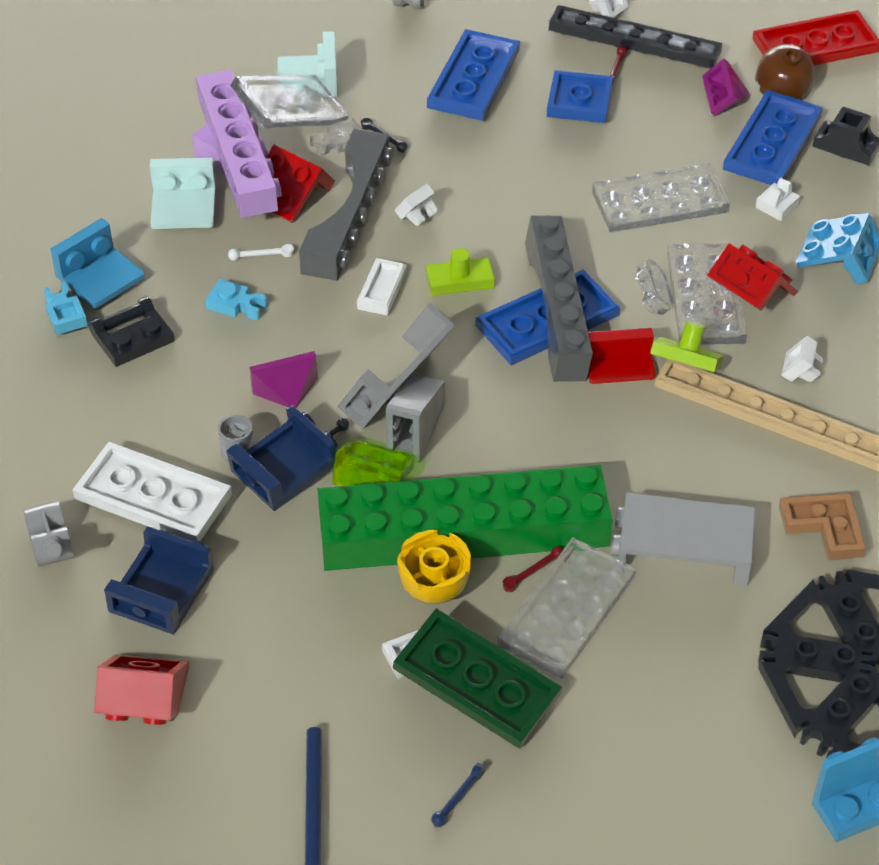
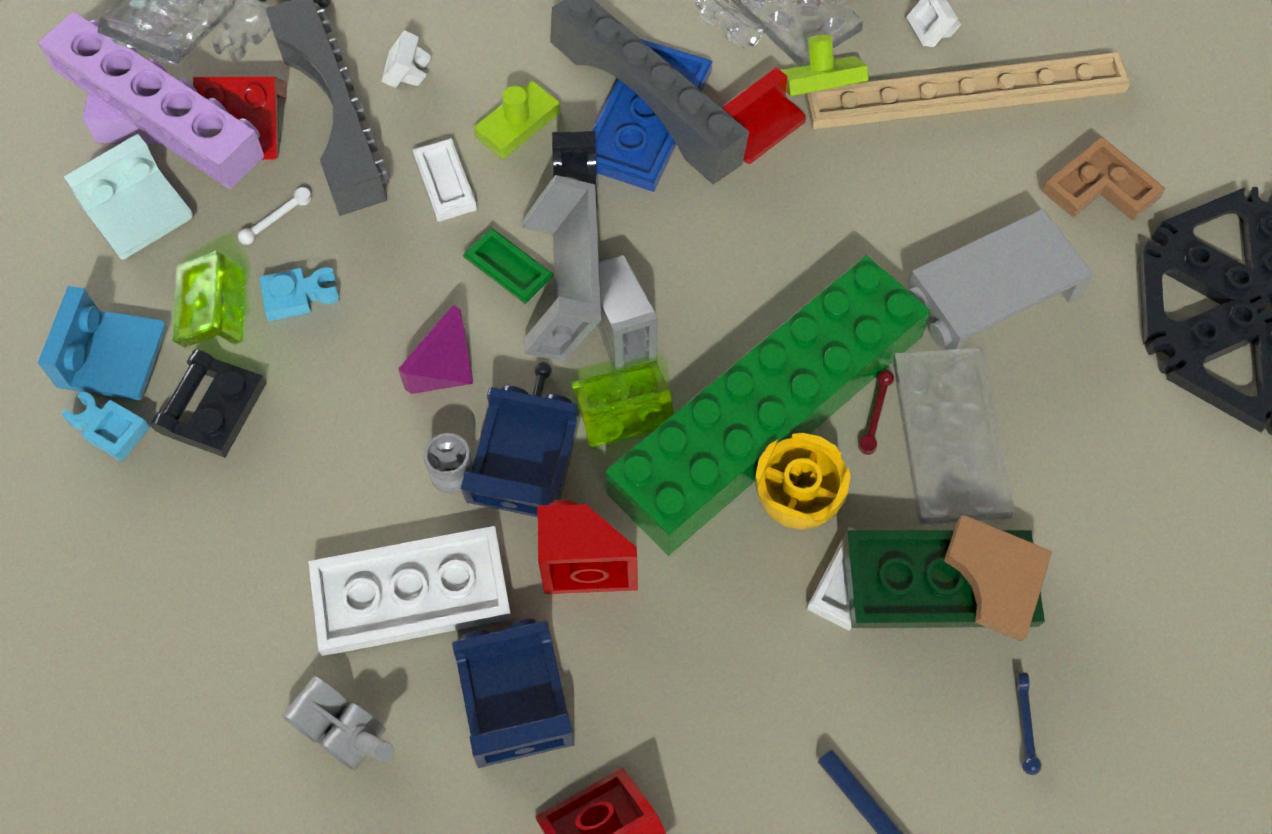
camera: 35 degrees left, 15 degrees up
(180, 276) = (209, 300): none -> clear neon green bracket
(260, 523) = (582, 551): none -> red slope
(375, 353) = (508, 265): none -> green tile
(464, 310) = (576, 156): none -> black brick
(514, 692) = (1002, 573): none -> medium nougat tile

